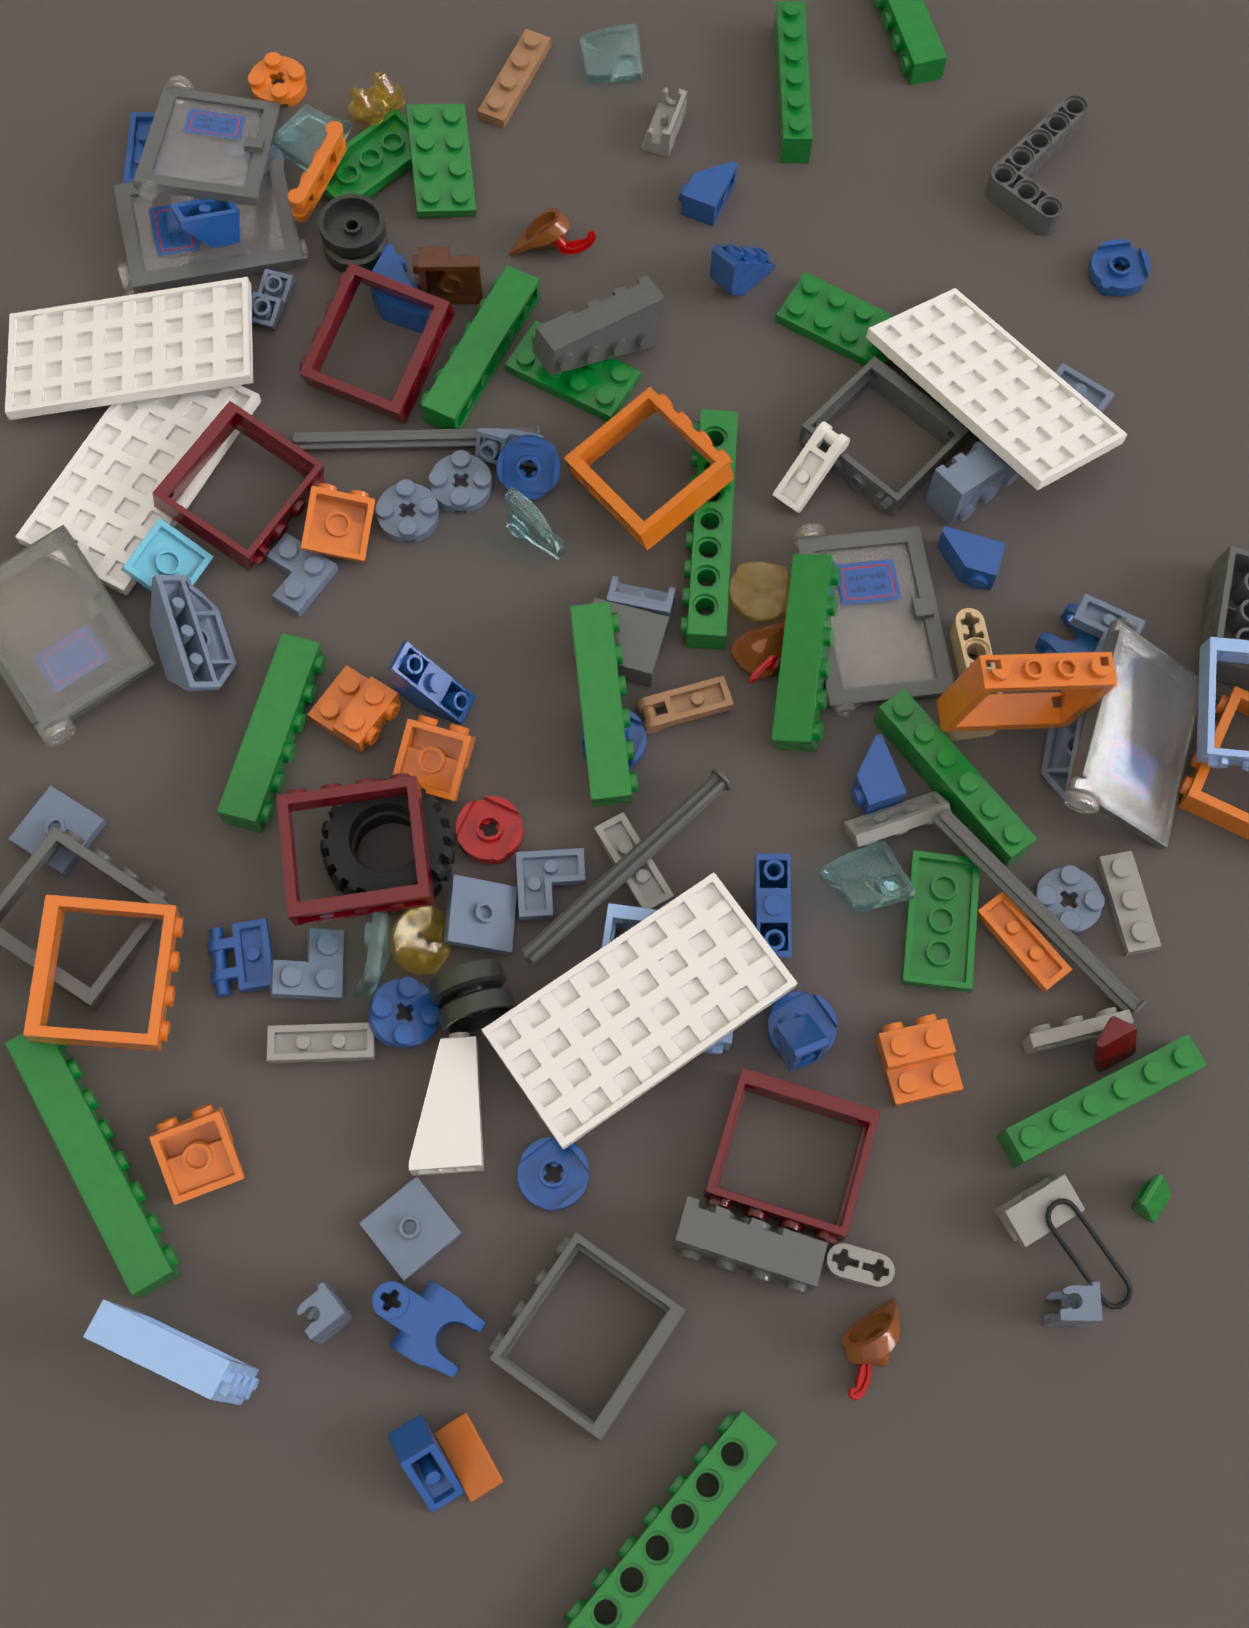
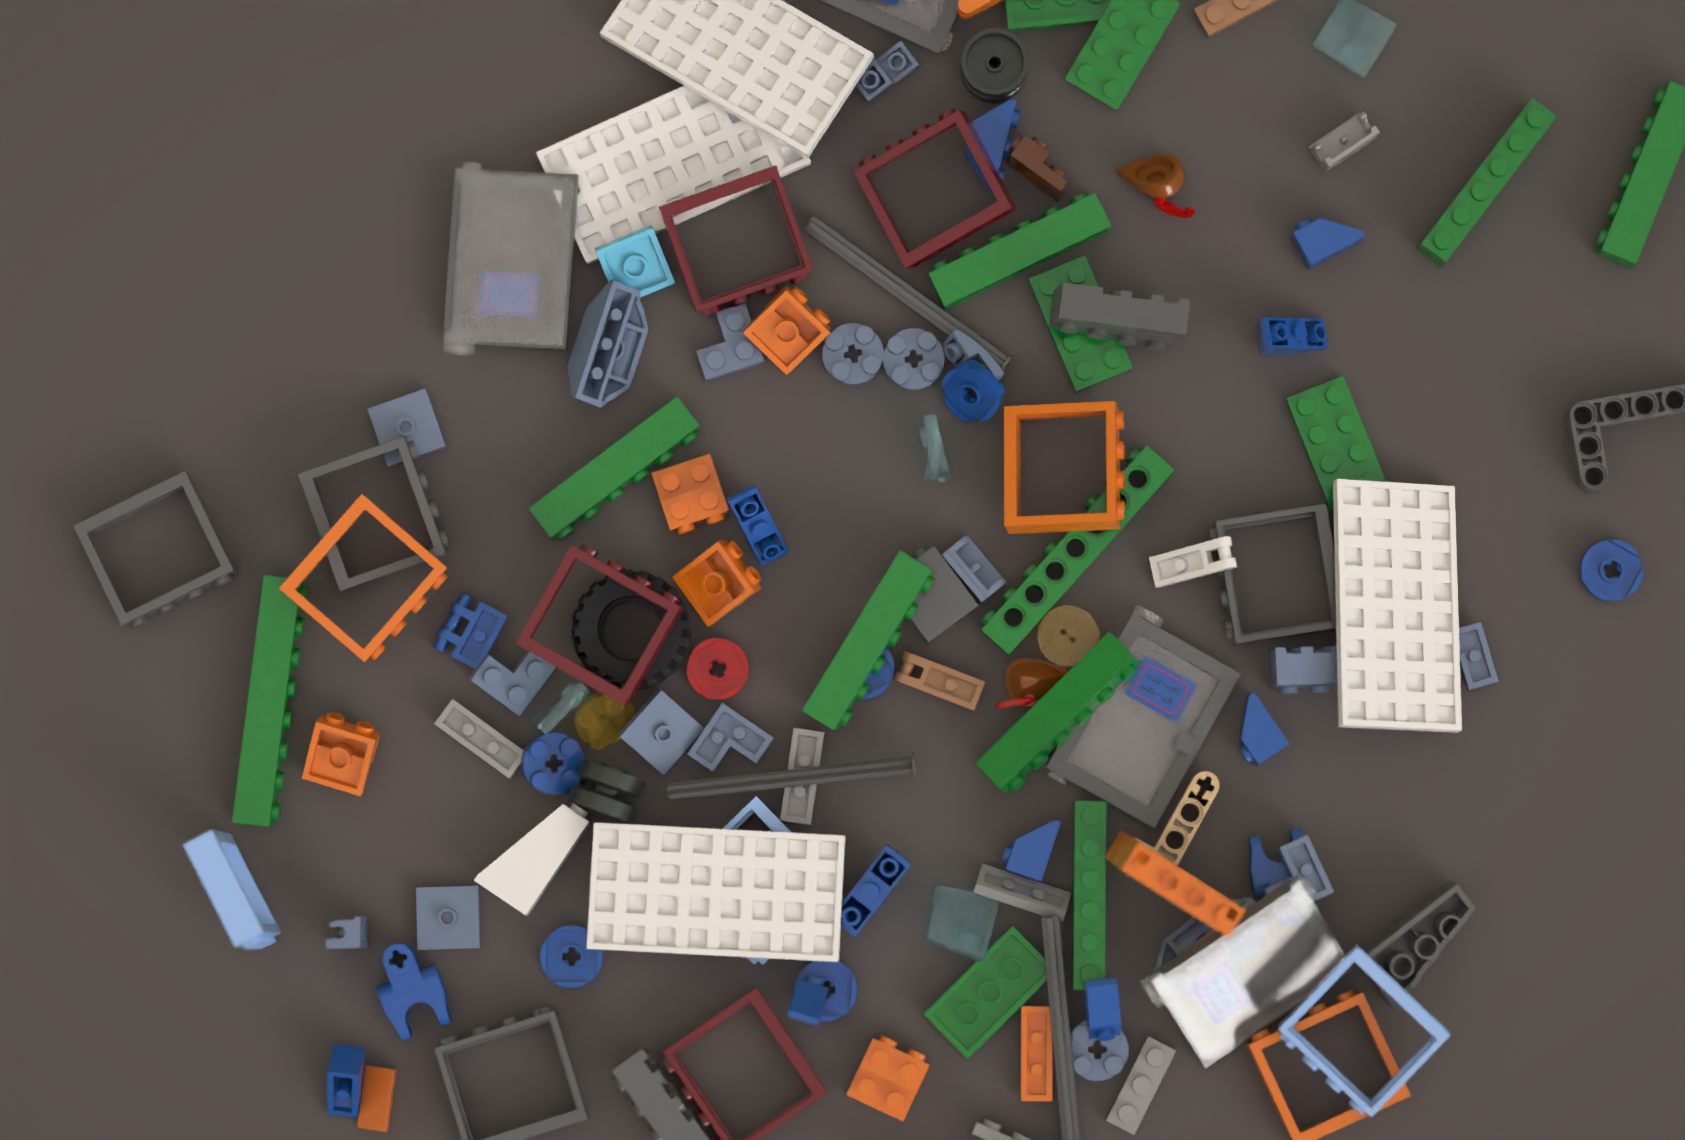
camera: 45 degrees right, 15 degrees up
(1049, 853) = (1102, 1009): none -> blue slope

